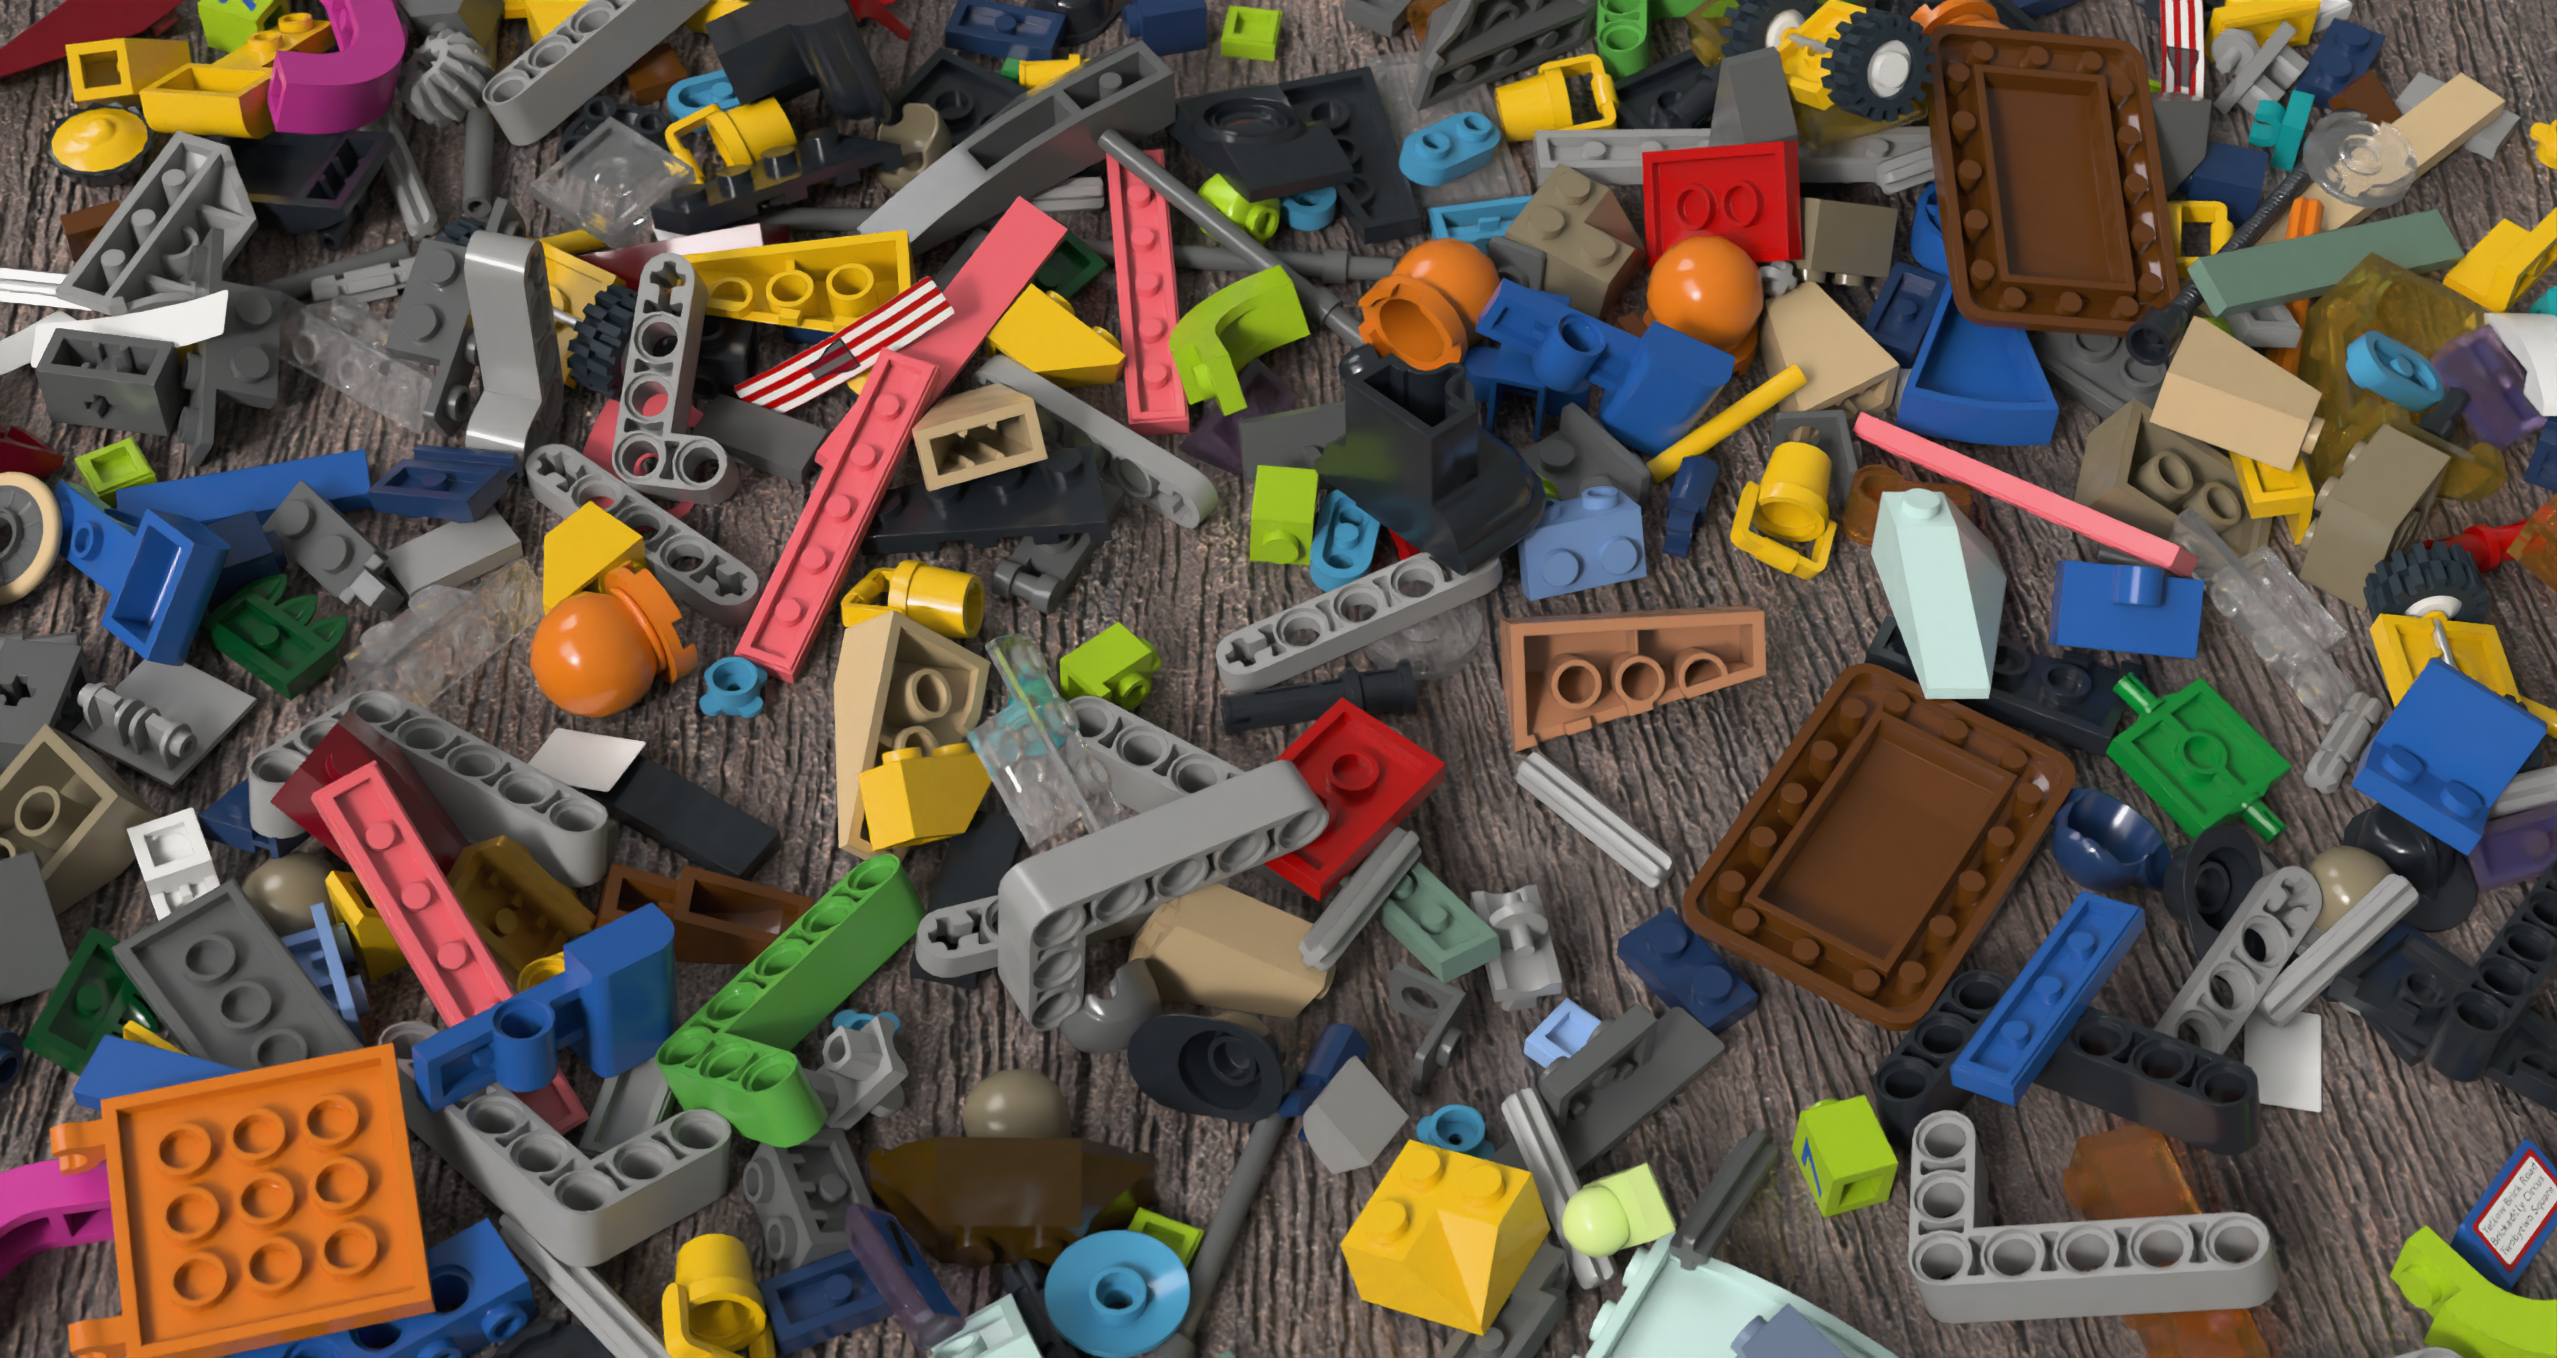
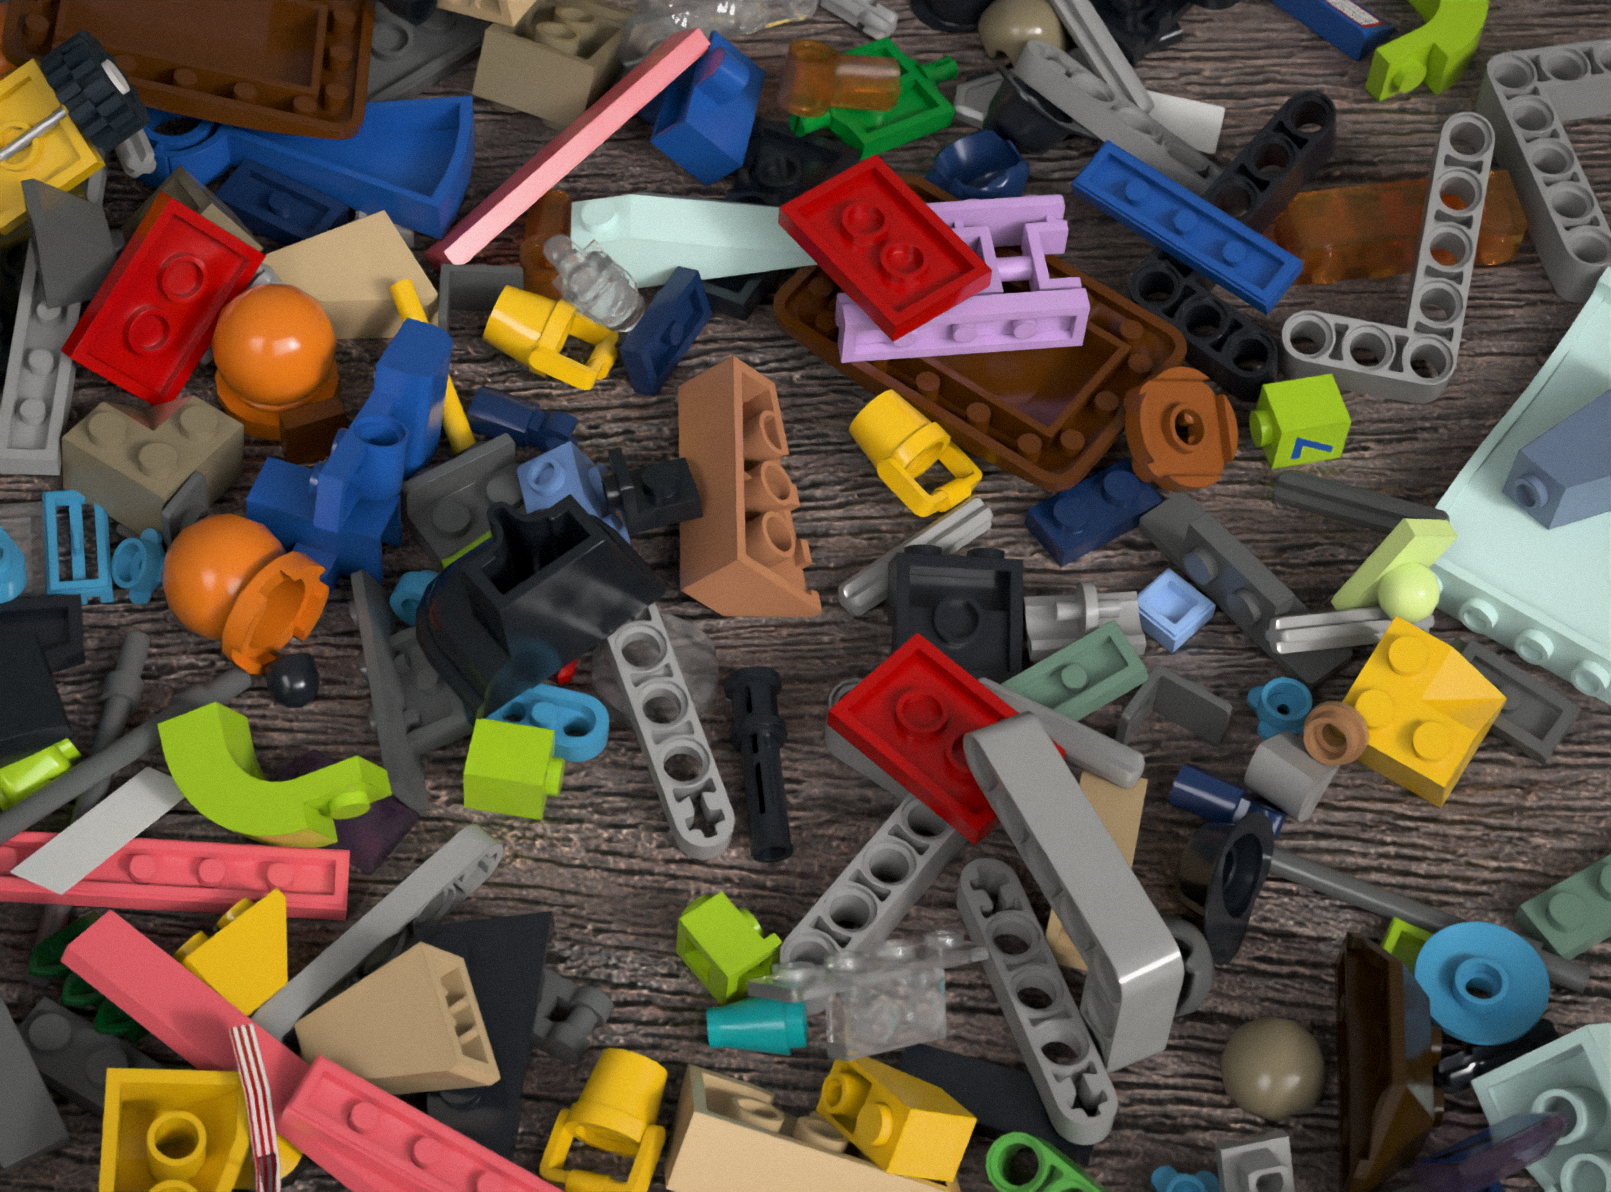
camera: 90 degrees left, 5 degrees up
(1162, 240) = (101, 831): none -> white sticker
(1386, 1134) = (1327, 746): none -> medium nougat plate
(1511, 833) = (961, 606): none -> black plate
(1590, 568) = (650, 494): none -> black bracket
(1708, 791) = (905, 446): none -> yellow piece
(1749, 1008) = (1152, 436): none -> dark orange plate
(1823, 599) = (665, 331): none -> dark blue plate
(1846, 516) = (595, 283): none -> clear arm
(1874, 811) = (989, 321): none -> lavender fence
(1903, 690) = (884, 247): none -> red plate
(2164, 675) = (822, 78): none -> clear orange piece

